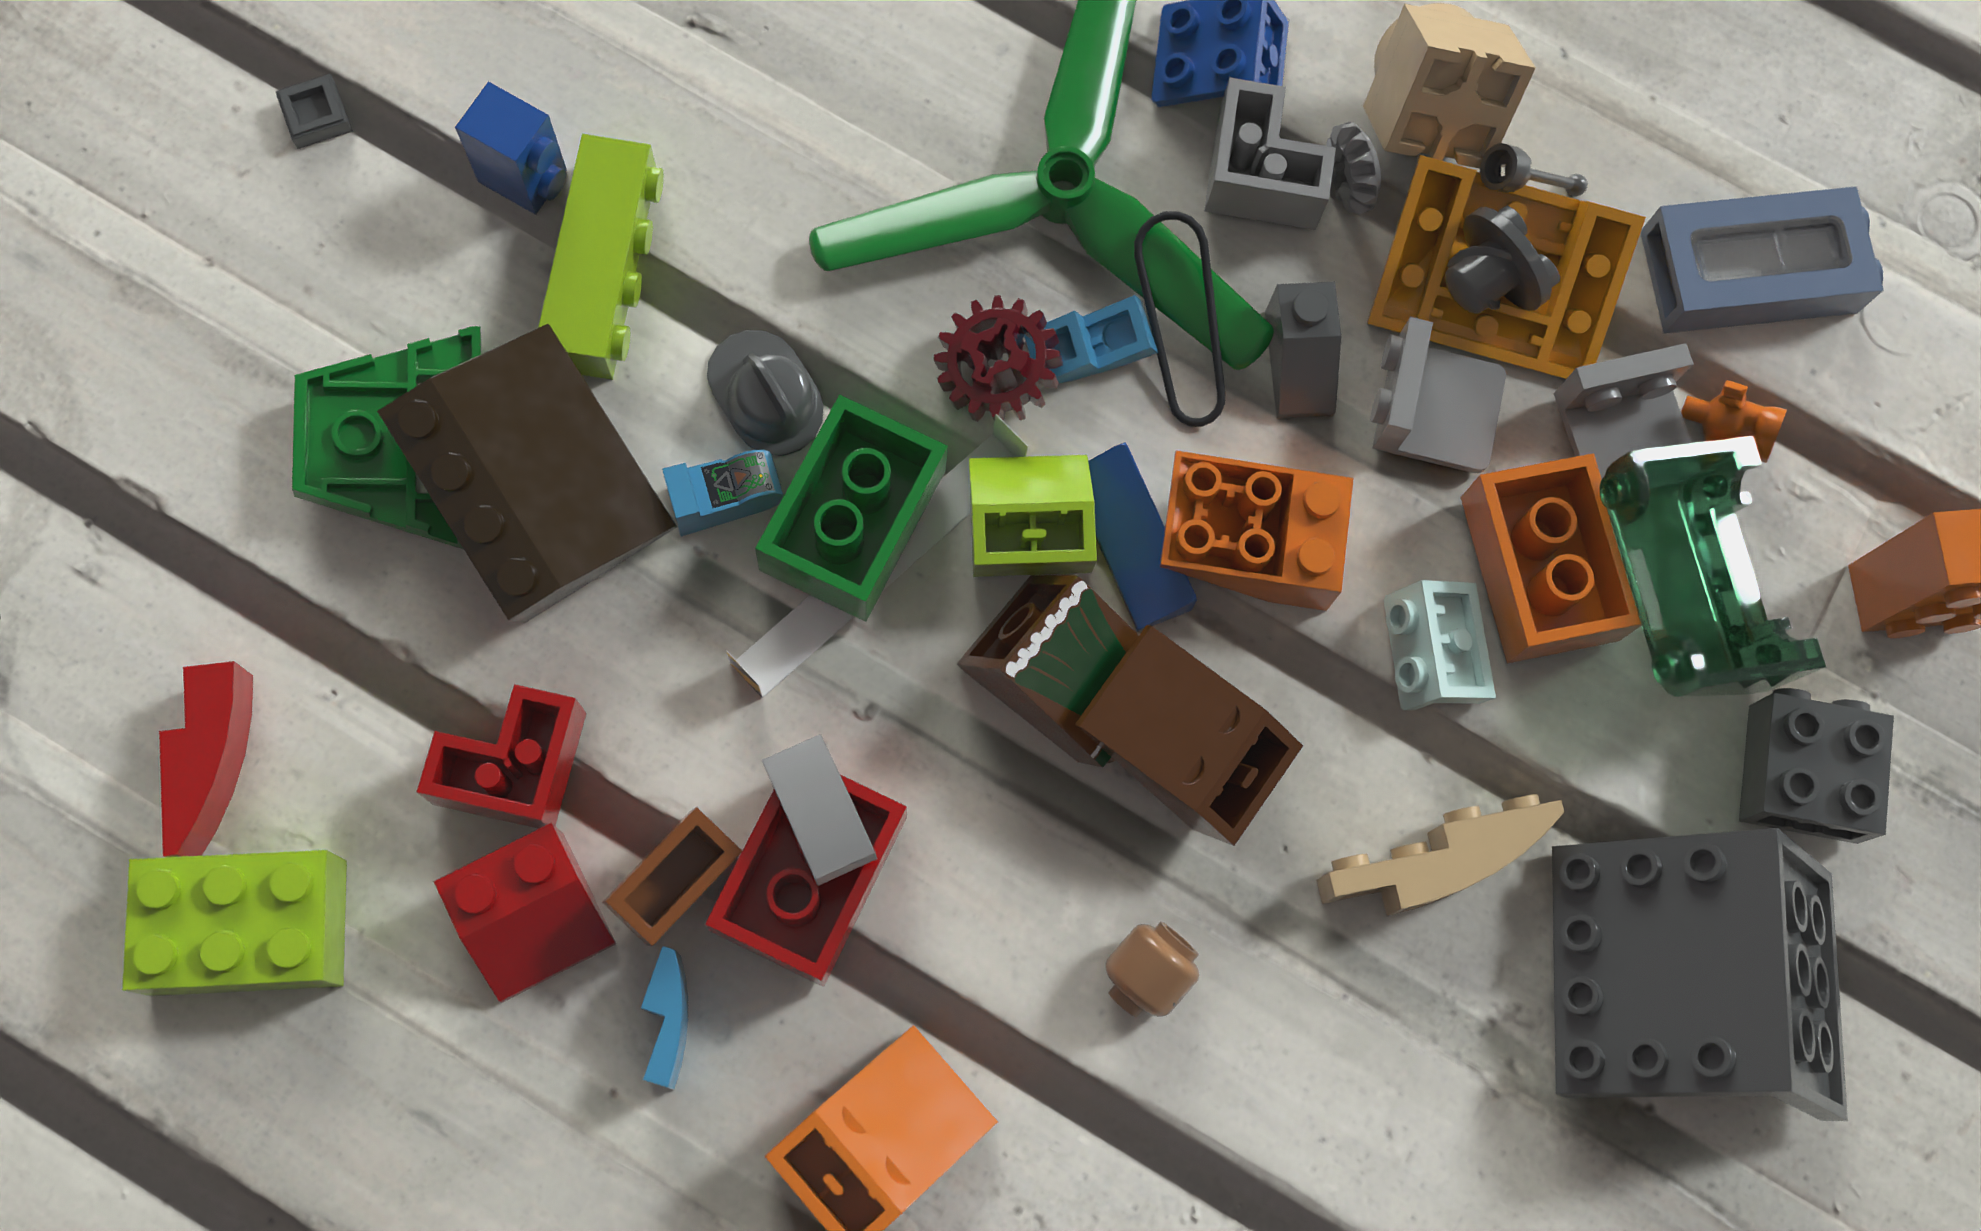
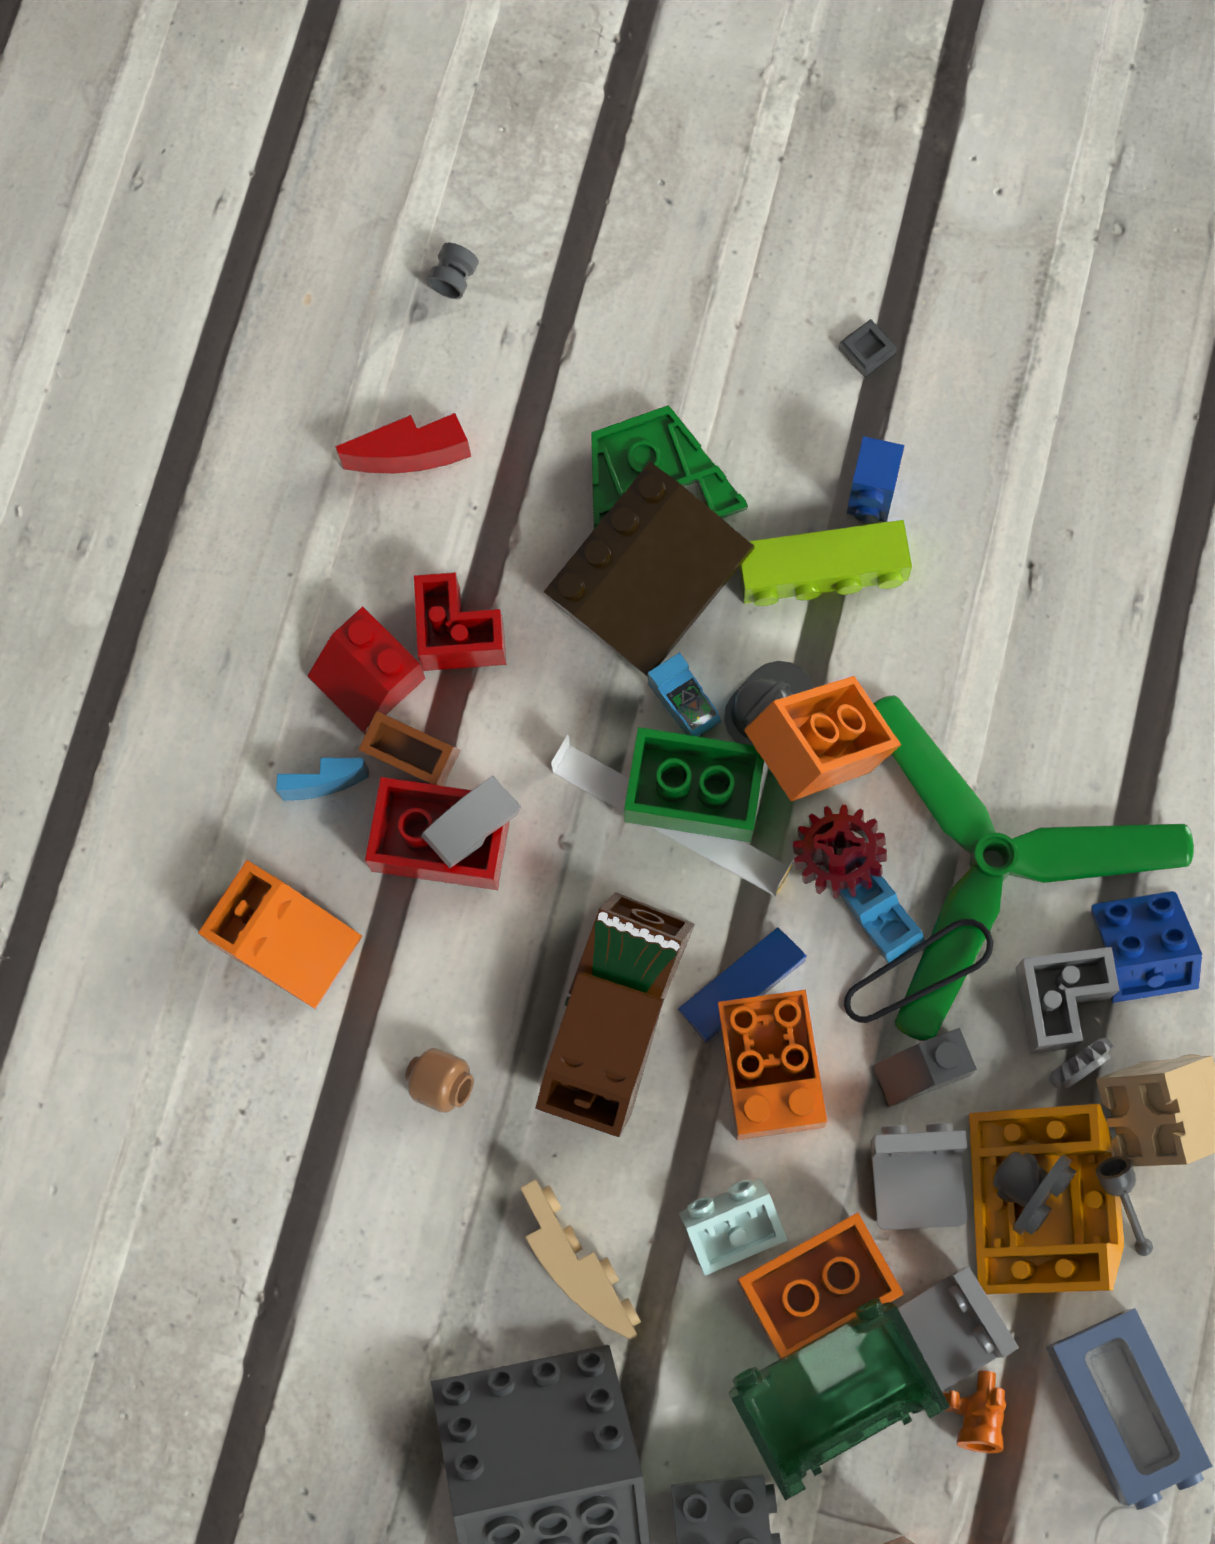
camera: 90 degrees right, 0 degrees up
(235, 923) = (309, 505): lime brick -> none
(852, 322) = (822, 737): none -> orange brick
(1032, 515) = (732, 905): lime slope -> none

